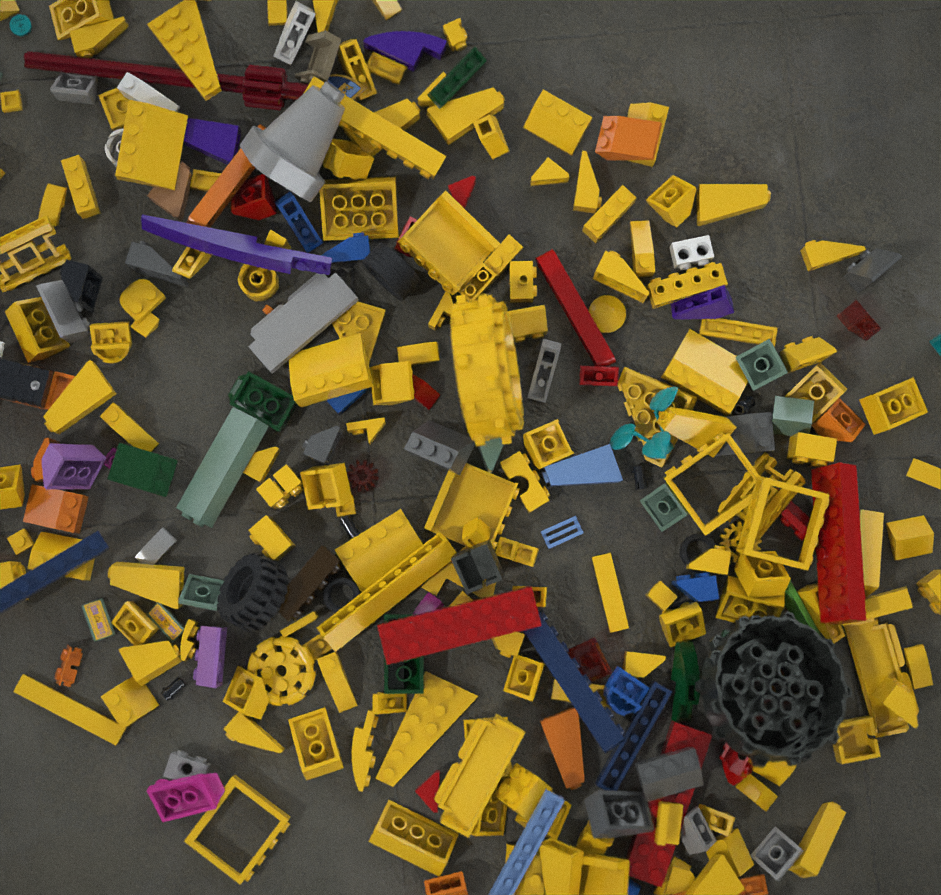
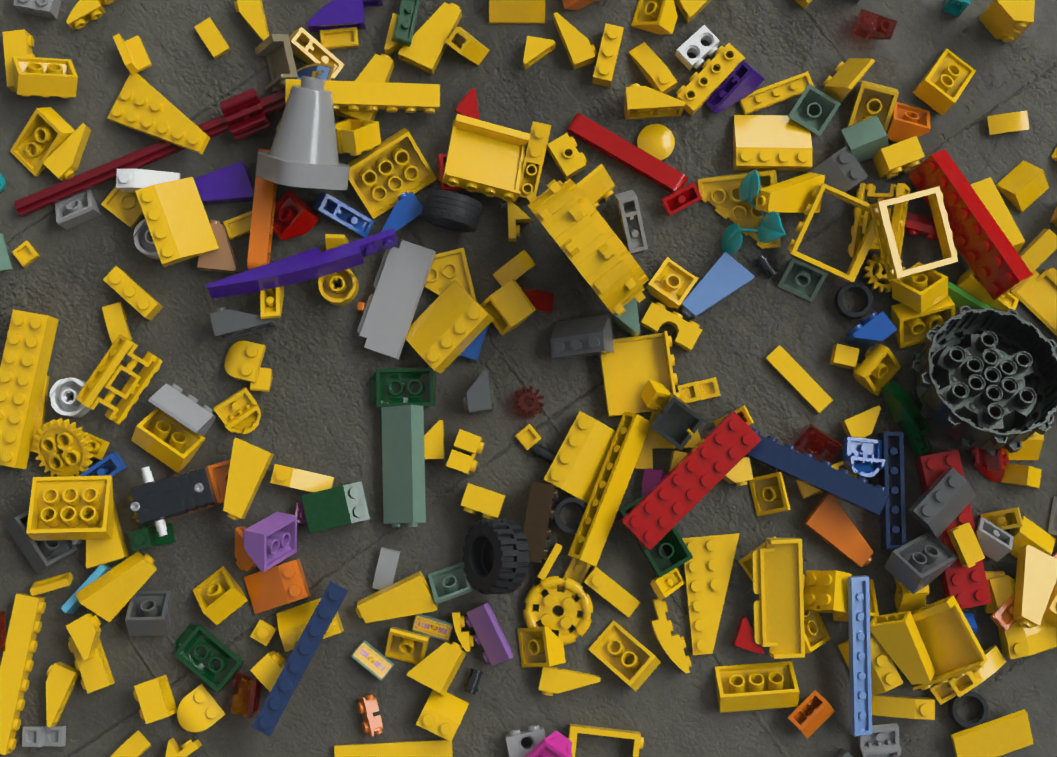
camera: 30 degrees left, 0 degrees up
(81, 283) = (186, 374): black slope -> none
(294, 32) = (241, 52): white slope -> none
(326, 486) = (501, 428): yellow piece -> none
(372, 426) = (511, 355): yellow slope -> none
(577, 525) = (736, 339): medium blue tile -> none
(712, 561) = (871, 301): yellow slope -> none
(744, 405) = (818, 154): black pin -> none

